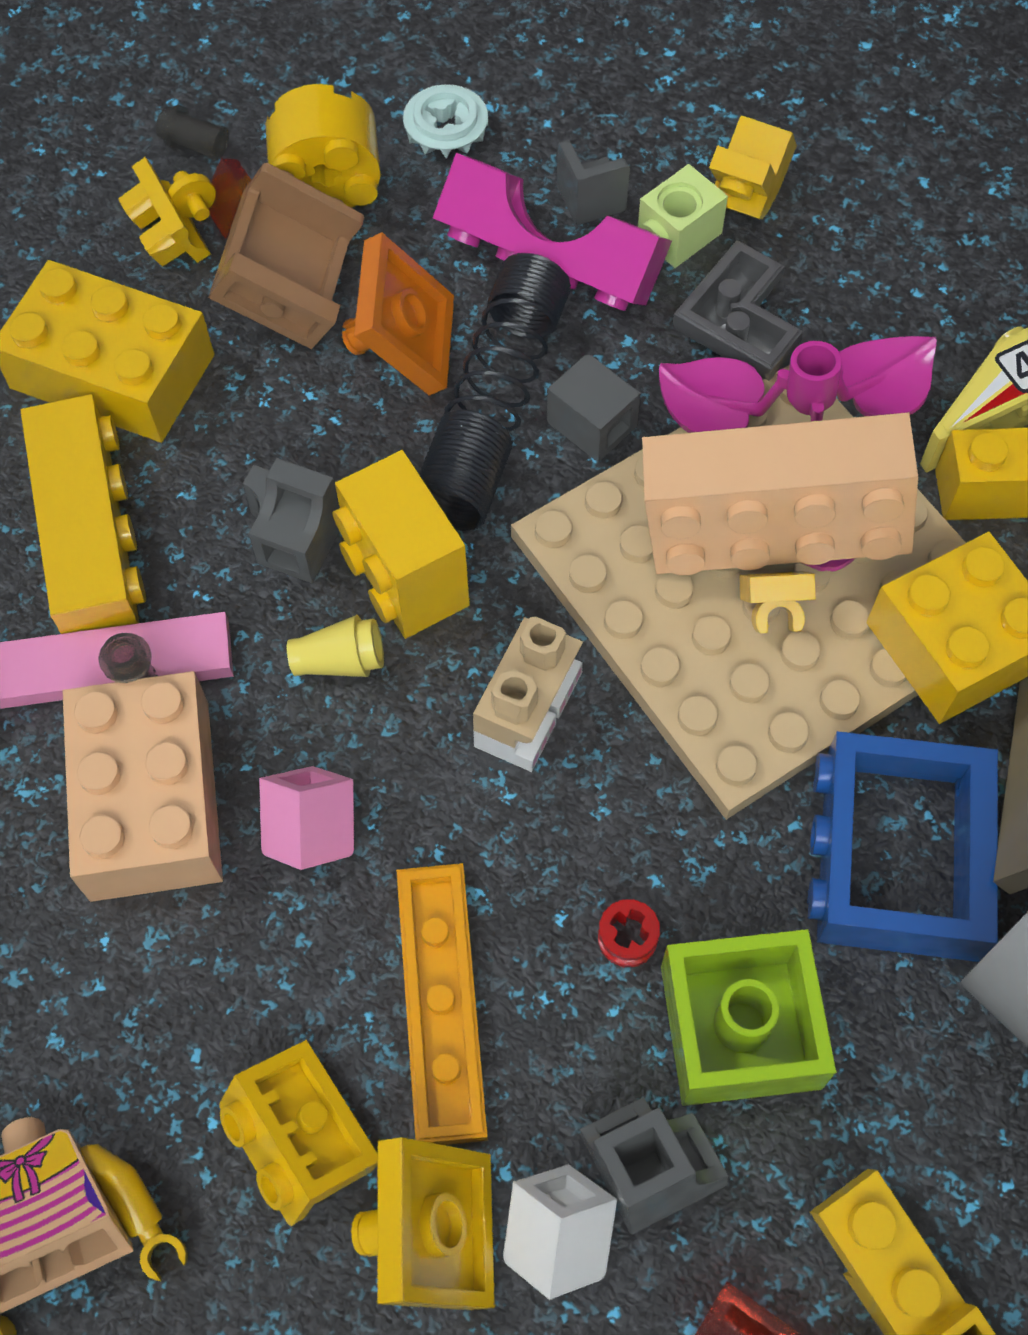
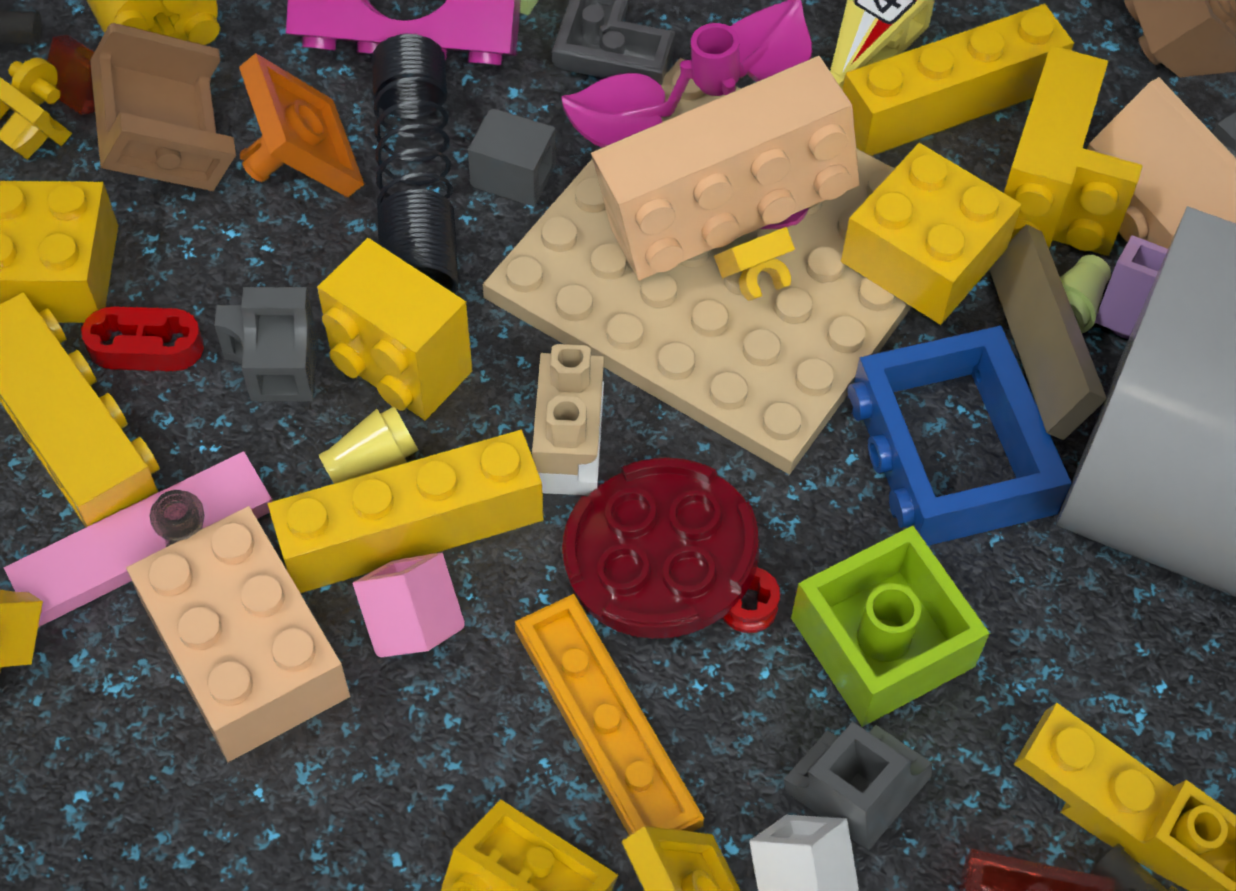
camera: 25 degrees left, 5 degrees down
(182, 478) = (142, 338): none -> red beam
(340, 725) = (408, 511): none -> yellow brick
(565, 850) = (661, 548): none -> dark red tile

